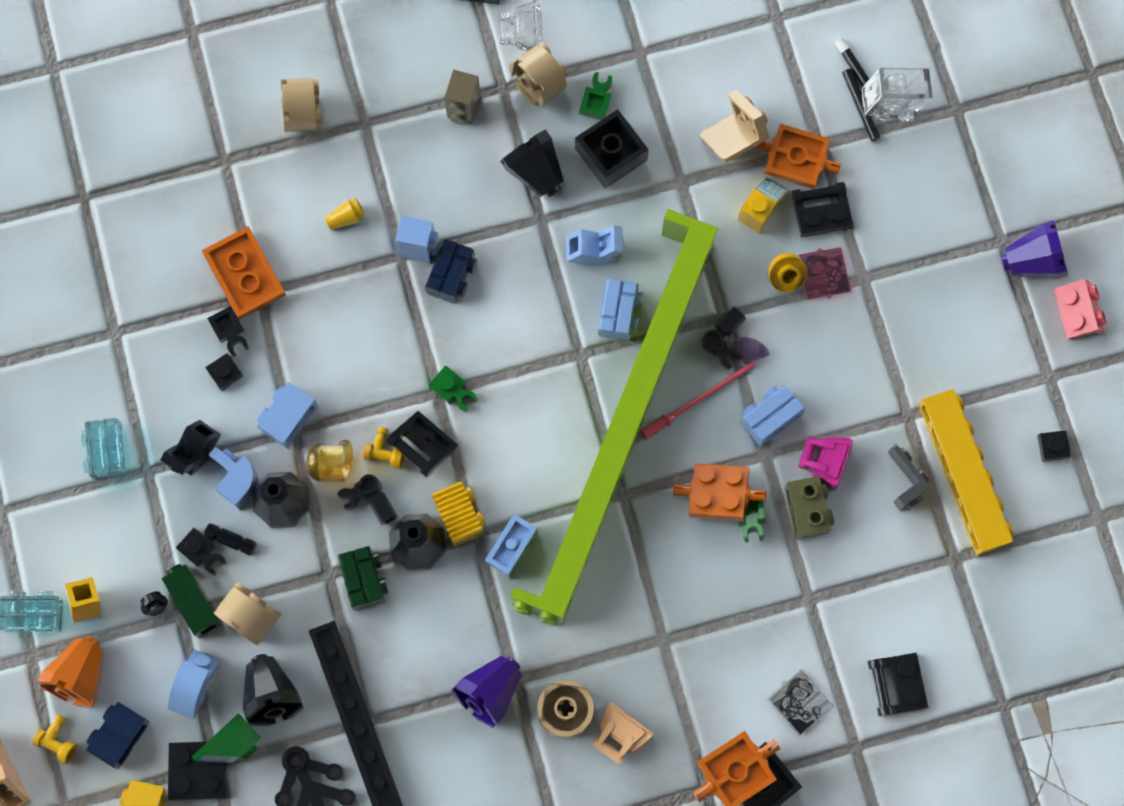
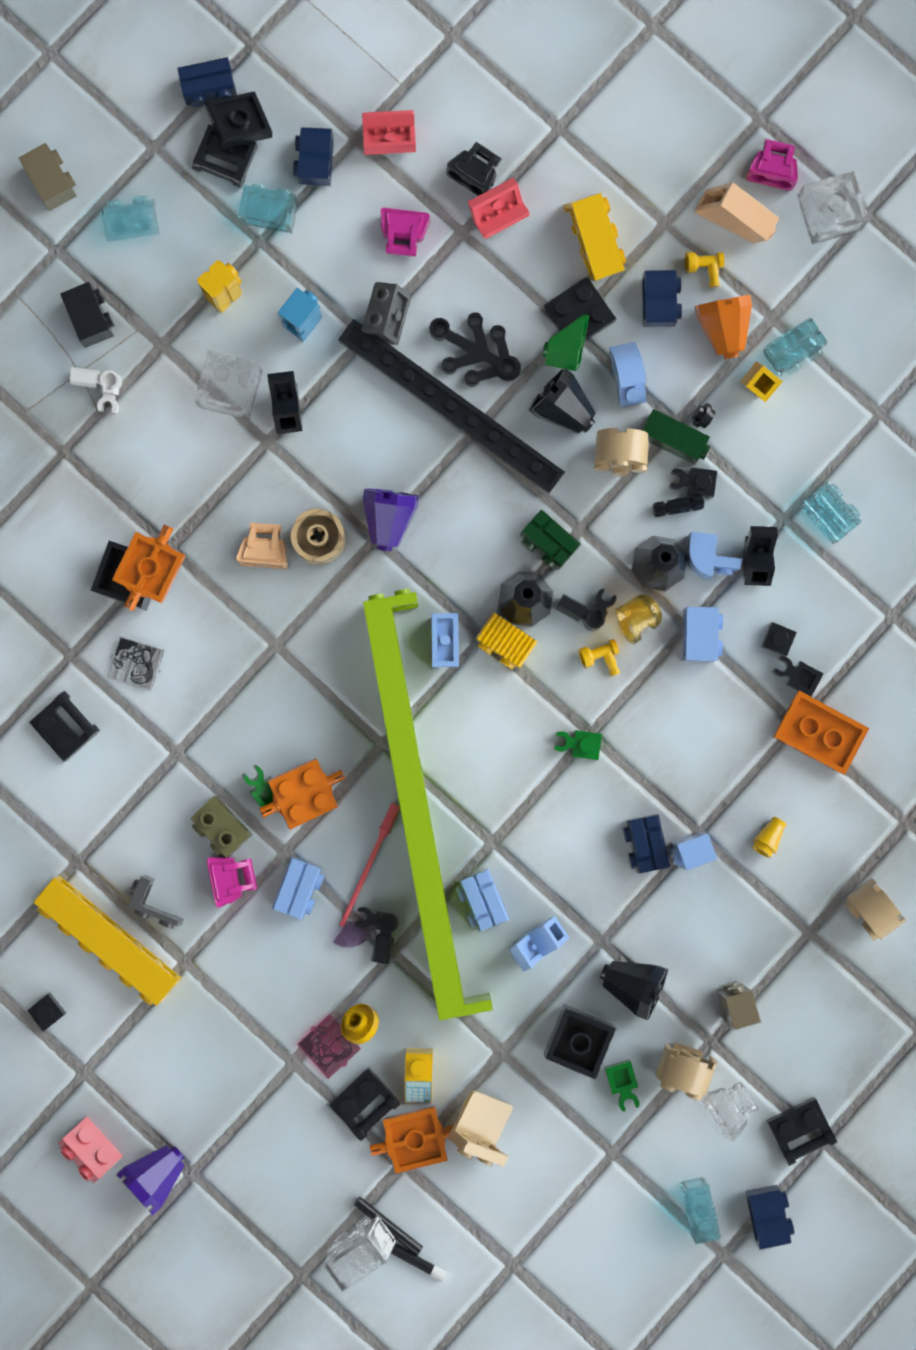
camera: 145 degrees right, 10 degrees up
(427, 438) = (570, 687): black plate -> none

